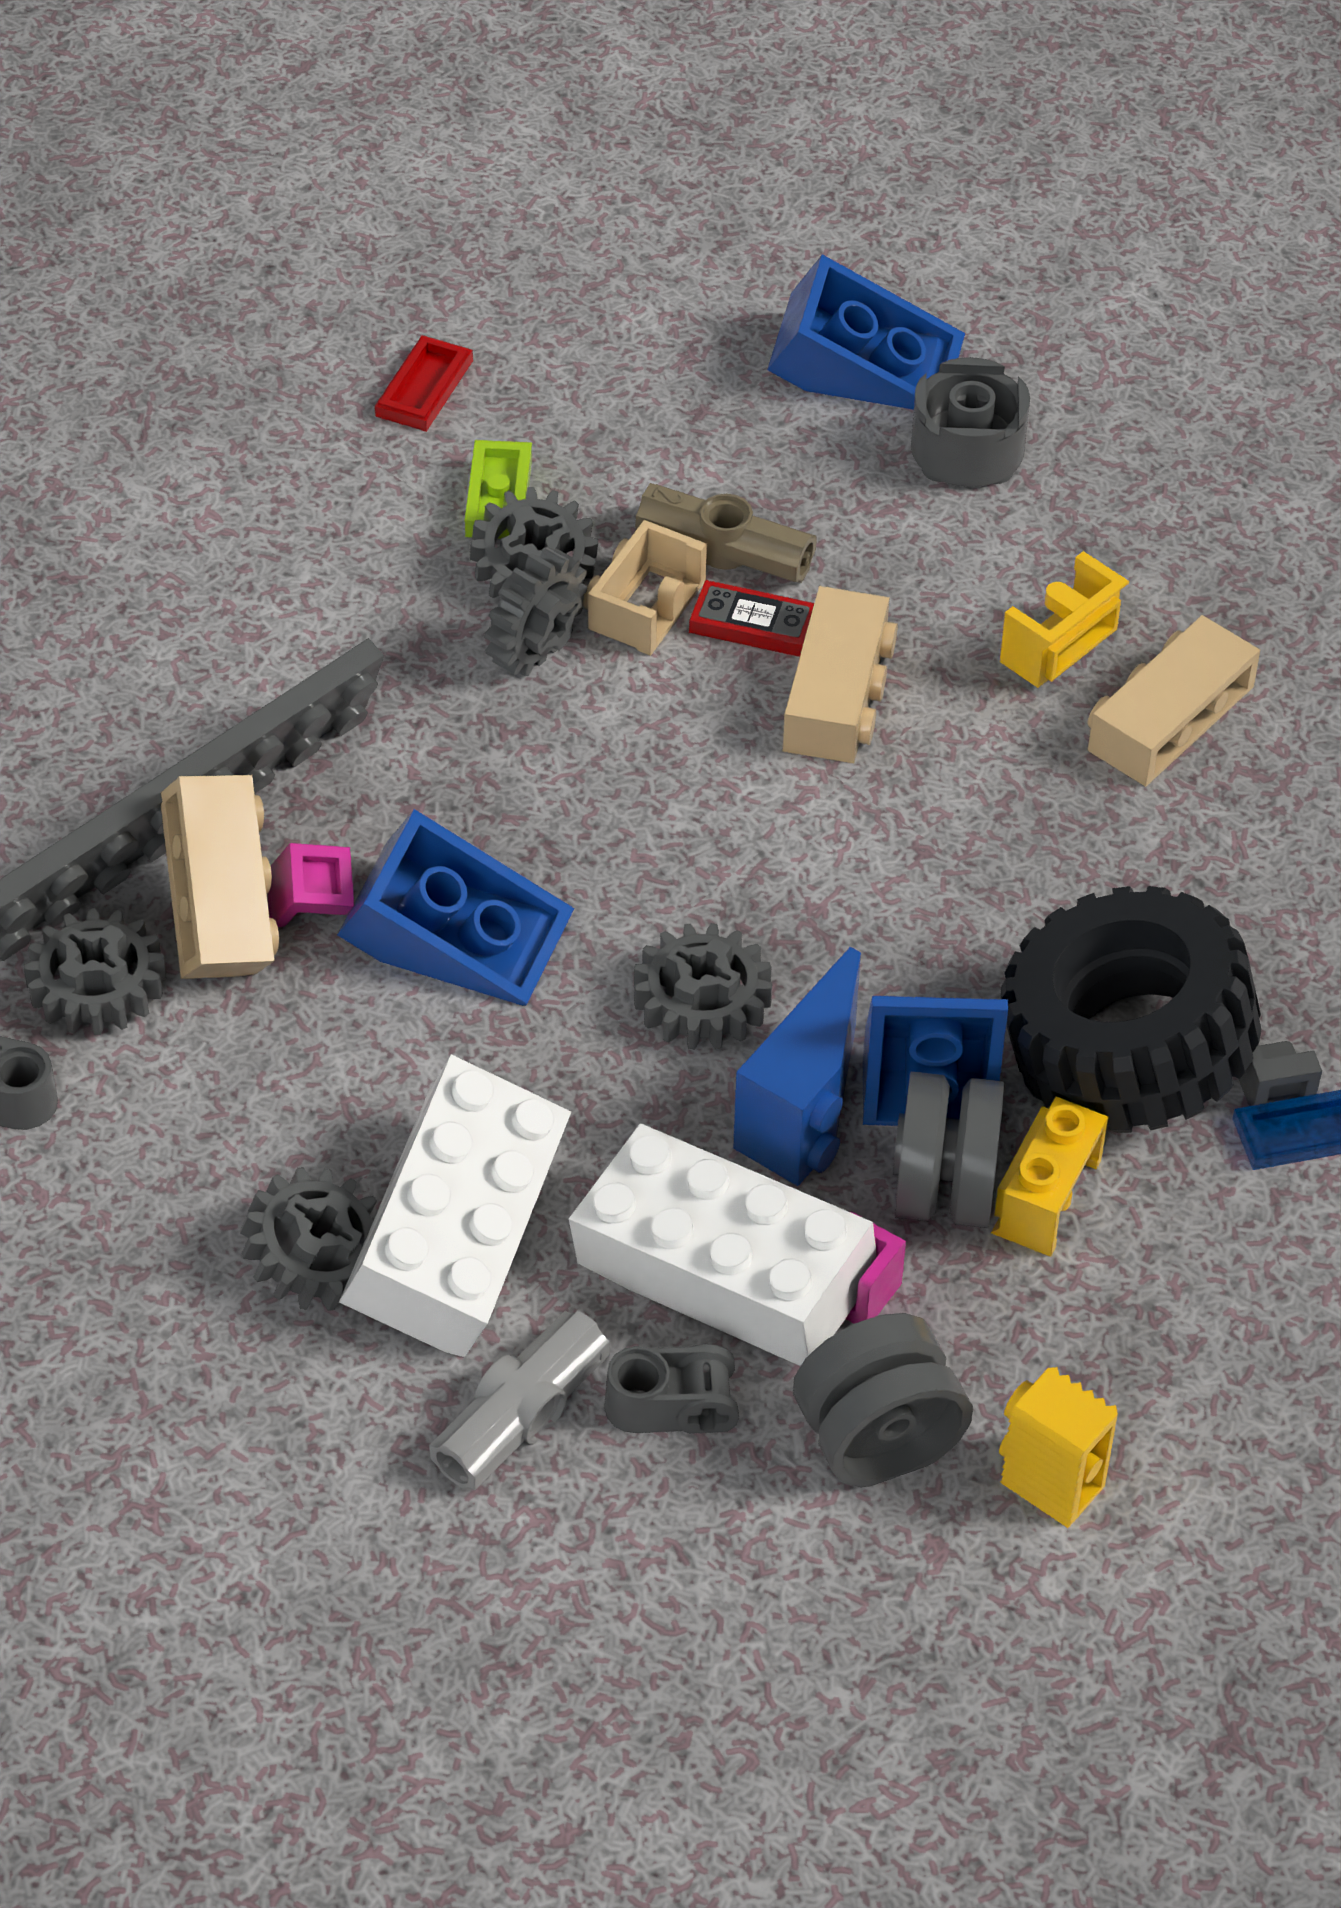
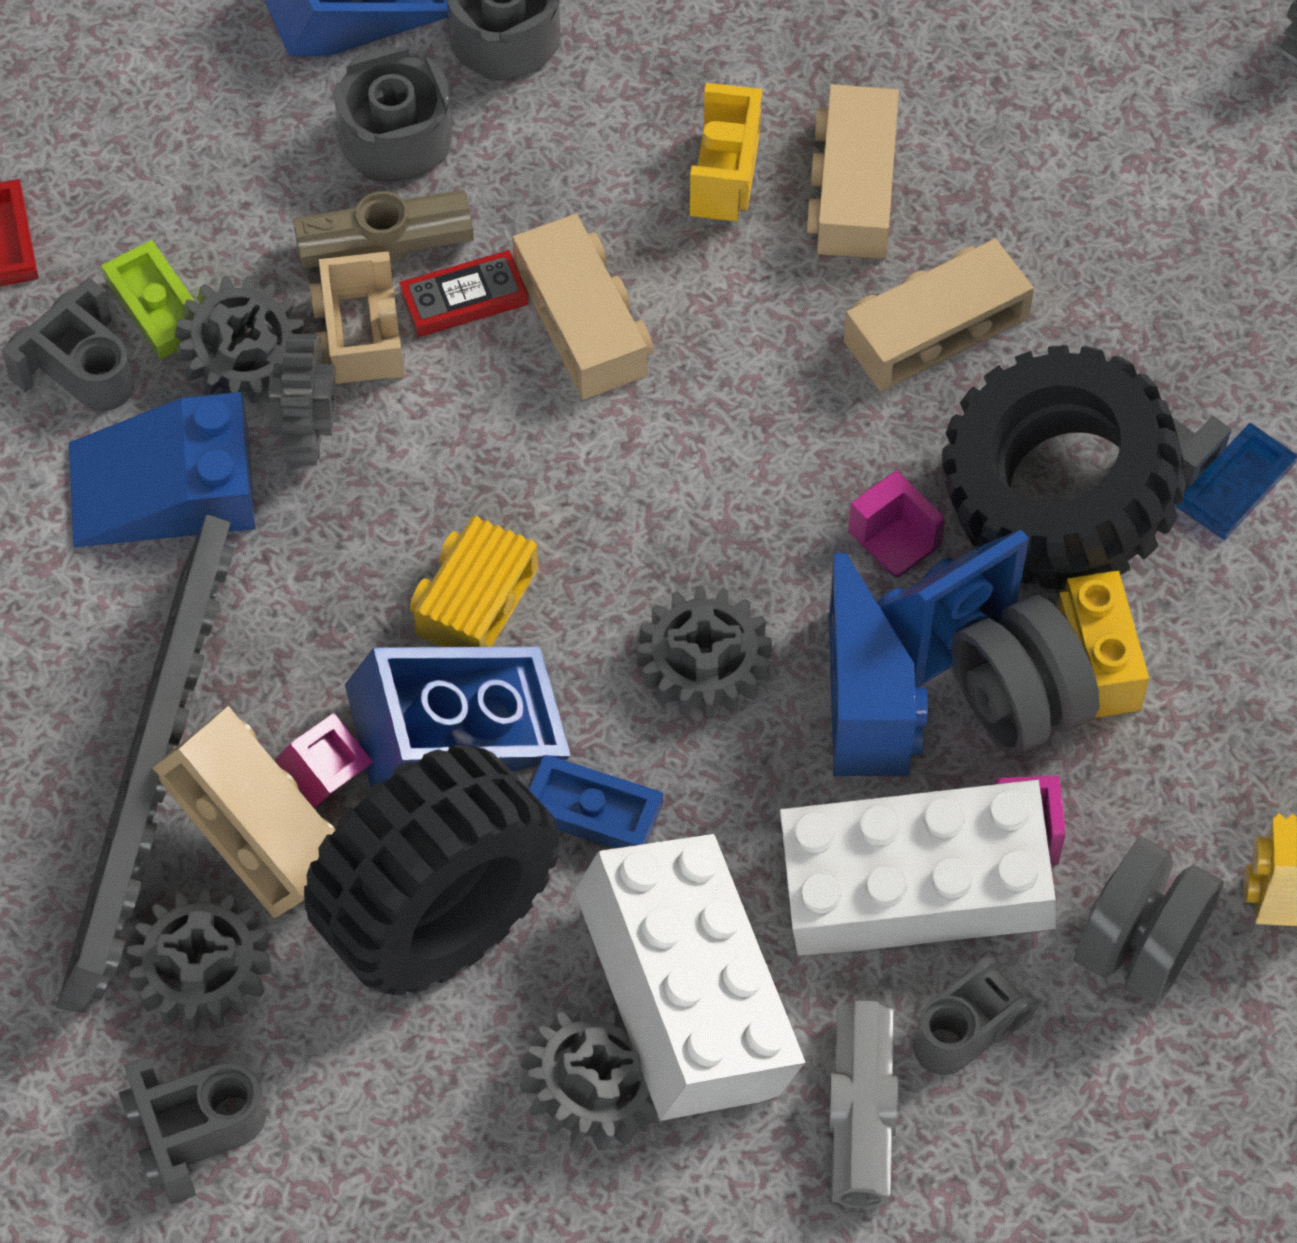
camera: 35 degrees left, 10 degrees up
(295, 933) = (430, 869): none -> black tyre
(399, 488) = (73, 348): none -> dark grey pin
(412, 608) = (163, 473): none -> blue slope
(506, 1041) = (596, 803): none -> blue plate
(559, 831) = (475, 587): none -> yellow brick
(807, 450) = (393, 114): none -> dark grey brick
(956, 967) = (896, 524): none -> dark pink panel
(1144, 844) = (937, 314): none -> tan brick

